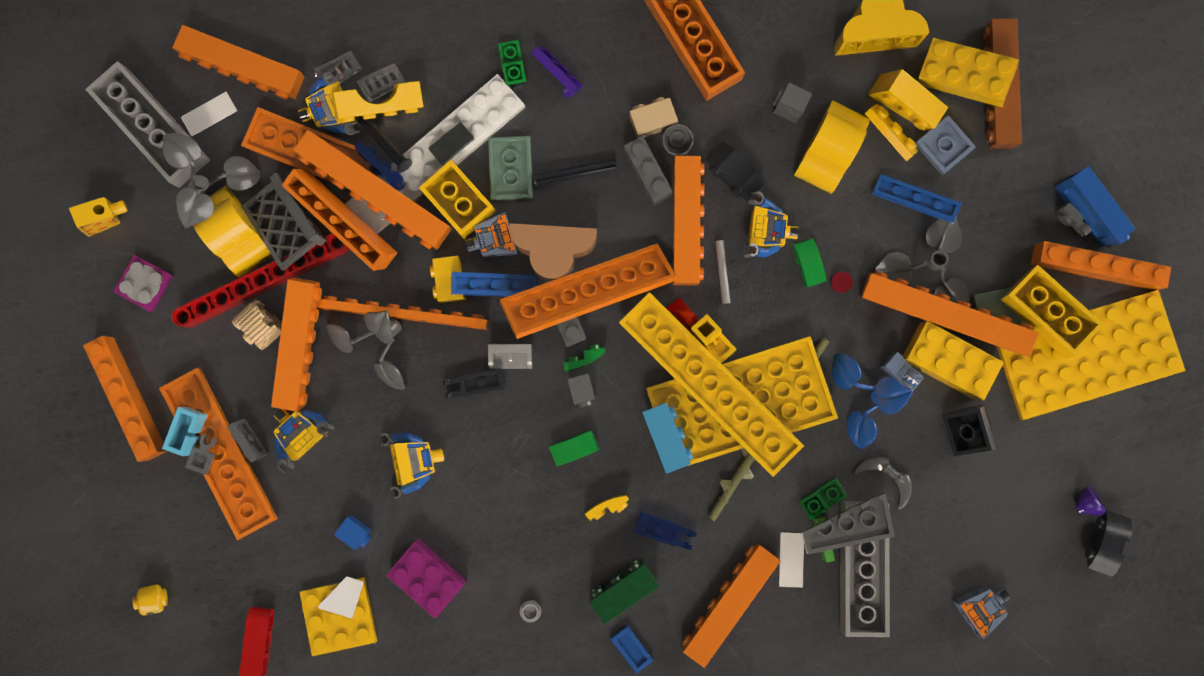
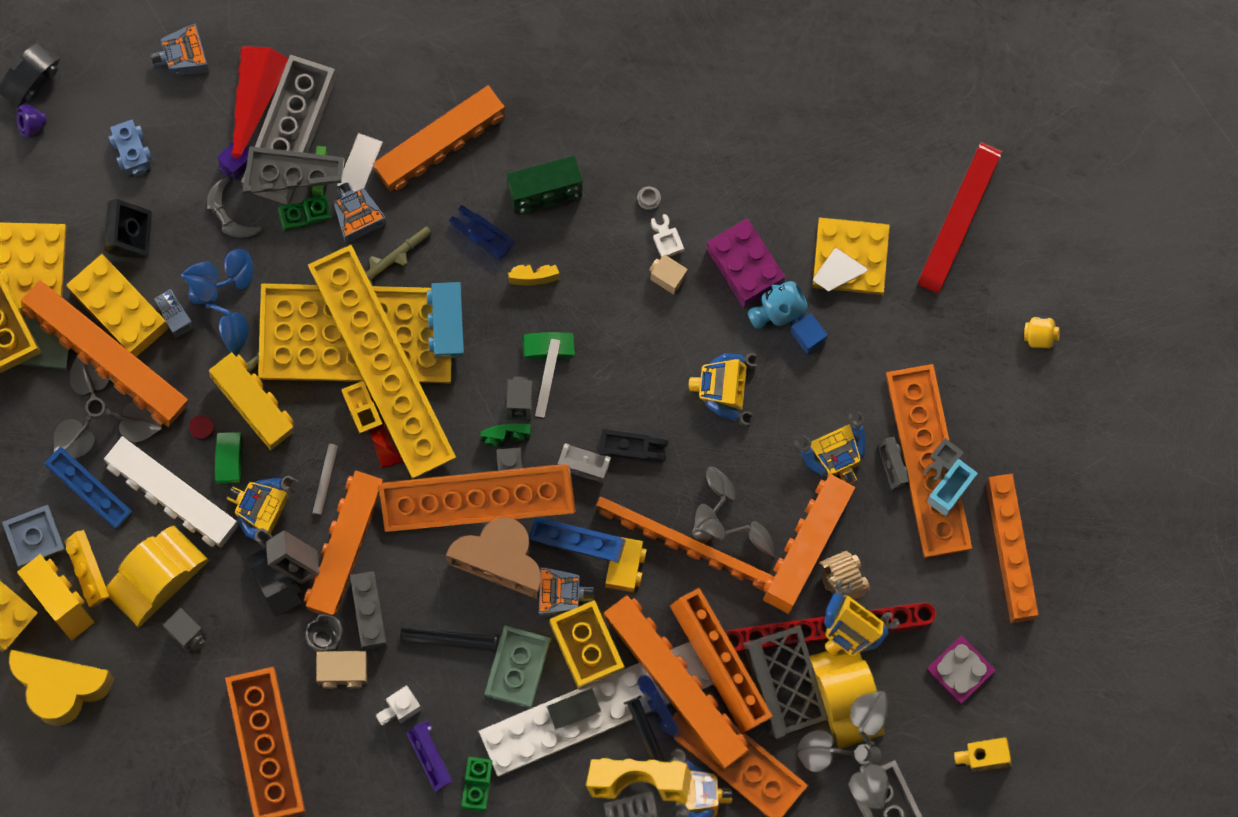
camera: 165 degrees left, 10 degrees down
(233, 280) = (853, 626): none -> torso
(384, 548) = (780, 305): none -> dark azure piece
(491, 546) = (668, 273): none -> tan brick
(501, 576) = (667, 240): none -> white plate
(565, 422) = (547, 378): none -> white sticker
(594, 102) = (401, 705): none -> white brick
(631, 648) = (556, 128): blue tile -> none
(726, 190) = (292, 557): none -> dark grey brick
(779, 512) = (357, 213): none -> torso
(808, 311) = (251, 401): none -> yellow brick
(847, 217) = (171, 492): none -> white brick
(903, 525) = (231, 166): none -> dark purple brick
(907, 604) = (258, 78): none -> red wedge
(990, 500) = (132, 154): none -> medium blue brick

